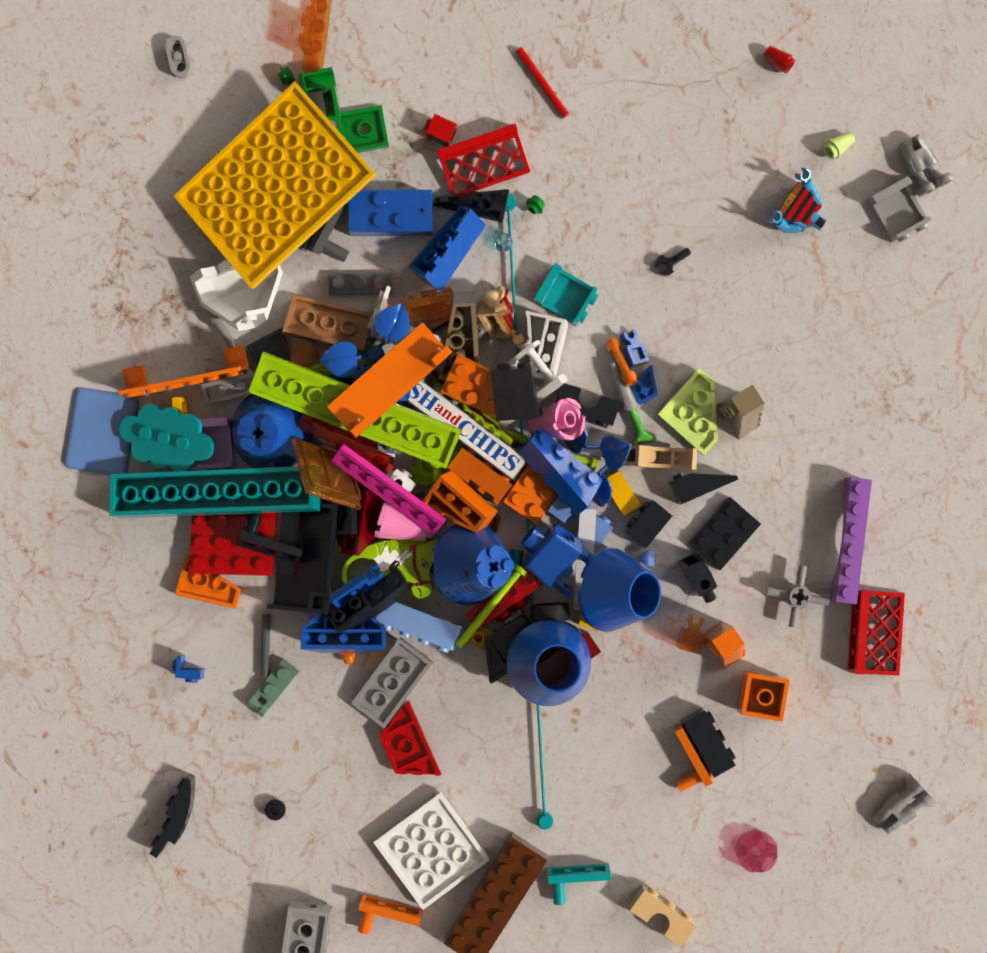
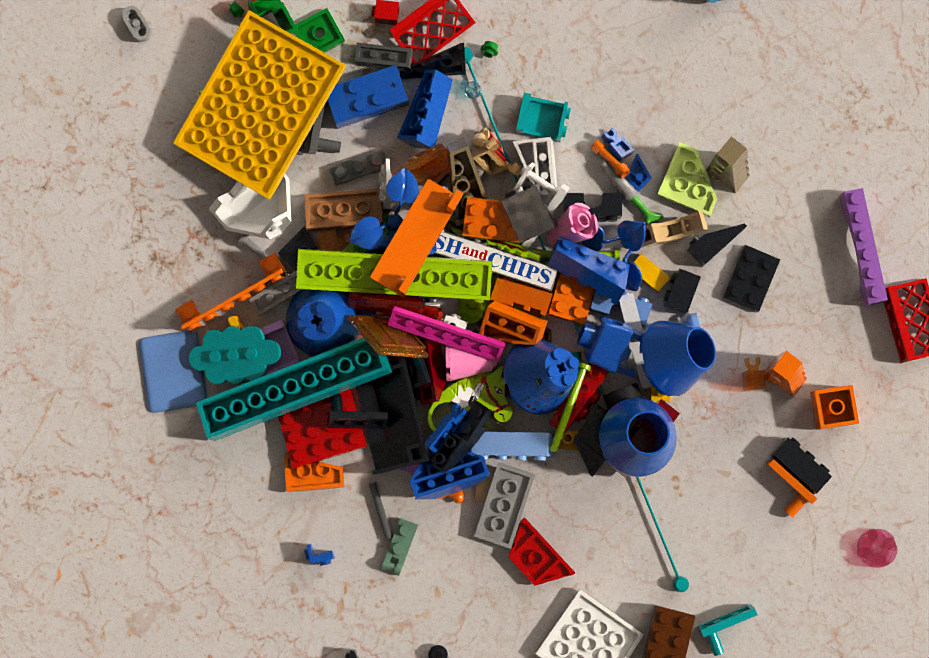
camera: 15 degrees left, 5 degrees down
(423, 175) = (383, 55): none -> dark grey plate
(648, 903) = (830, 636): tan arch -> none
(671, 261) = (626, 56): black bar -> none
(695, 571) = (738, 316): black torso -> none
(806, 597) = (842, 310): light grey bar -> none

